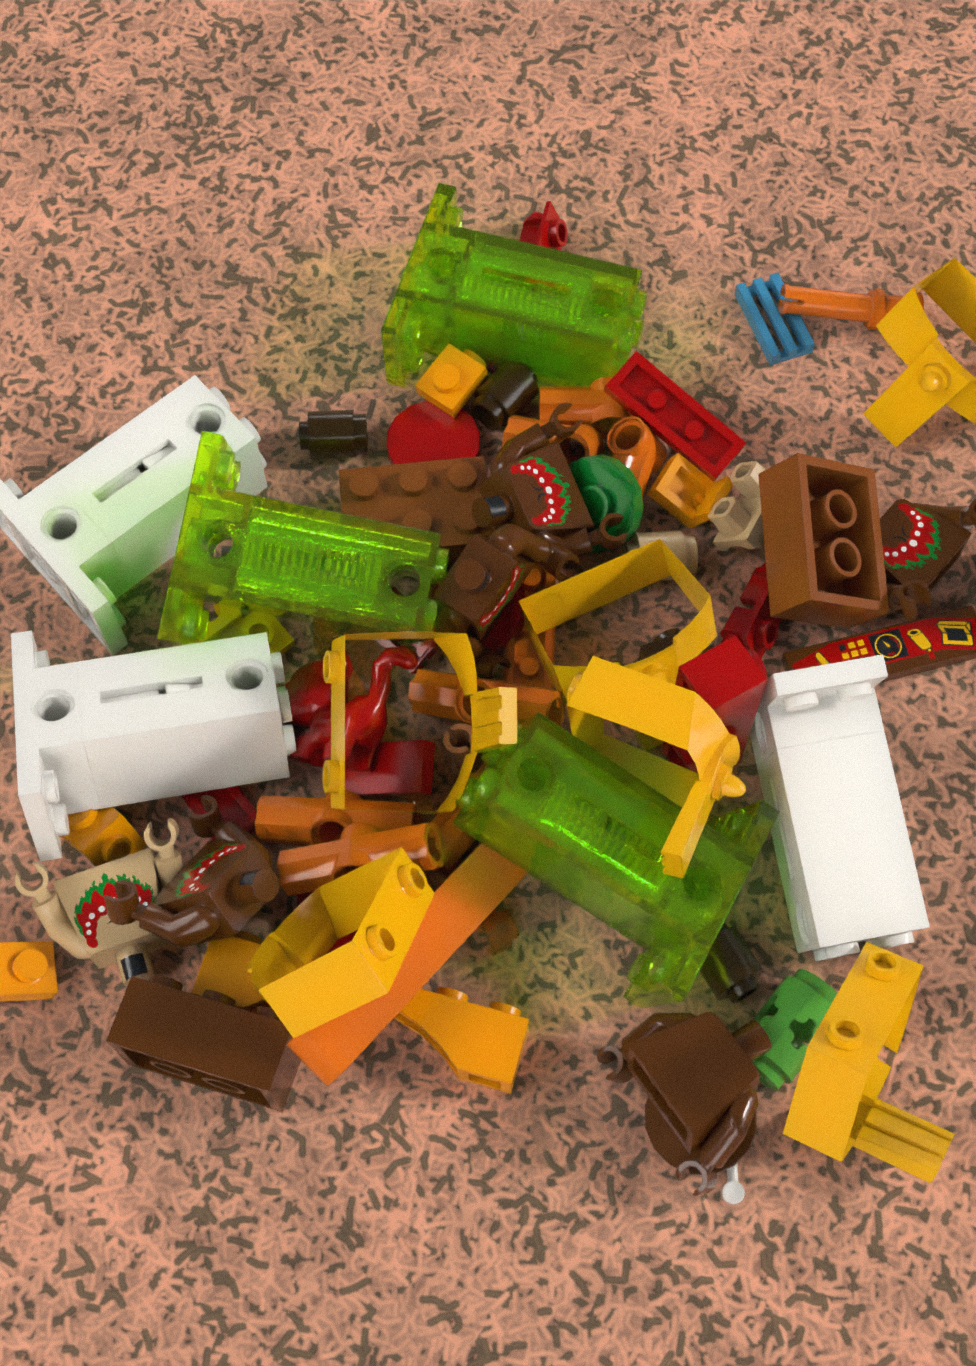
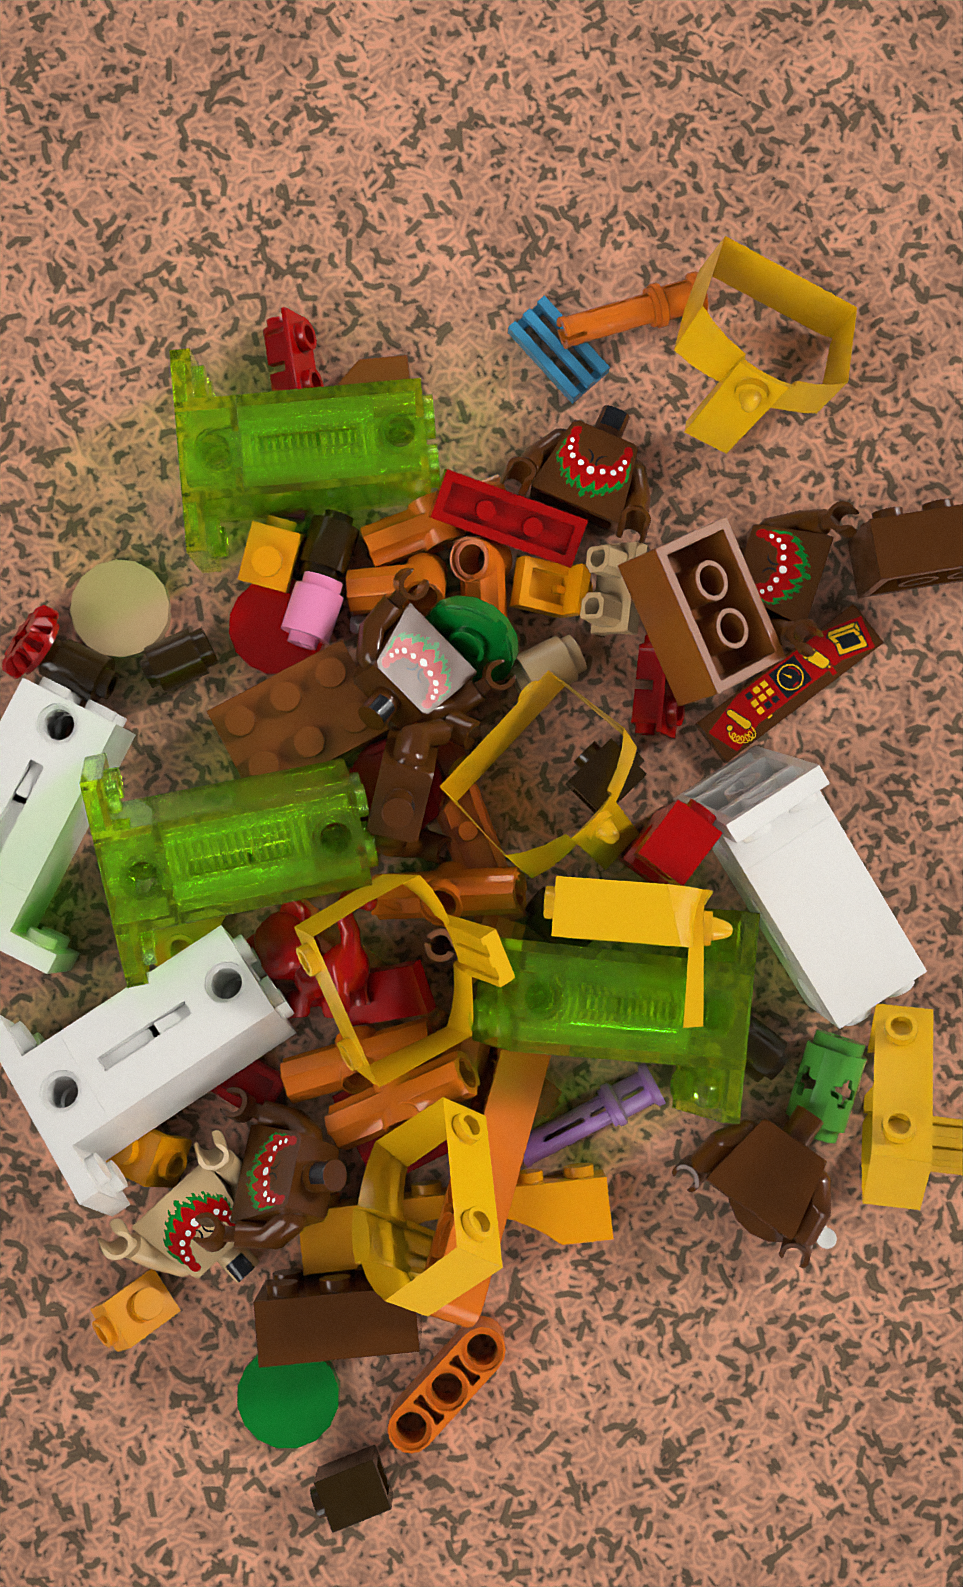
camera: 30 degrees left, 20 degrees up
(120, 1120) = (288, 1402): none -> green tile
(136, 1237) = (352, 1489): none -> dark brown brick
(222, 368) = (31, 642): none -> red gear
(249, 404) = (80, 670): none -> dark brown brick
(253, 1166) = (440, 1407): none -> orange beam
(302, 380) = (120, 609): none -> tan tile
(469, 428) = (312, 610): none -> bright pink brick
(562, 966) = (616, 1112): none -> medium lavender pin
(761, 408) = (588, 474): none -> reddish brown torso

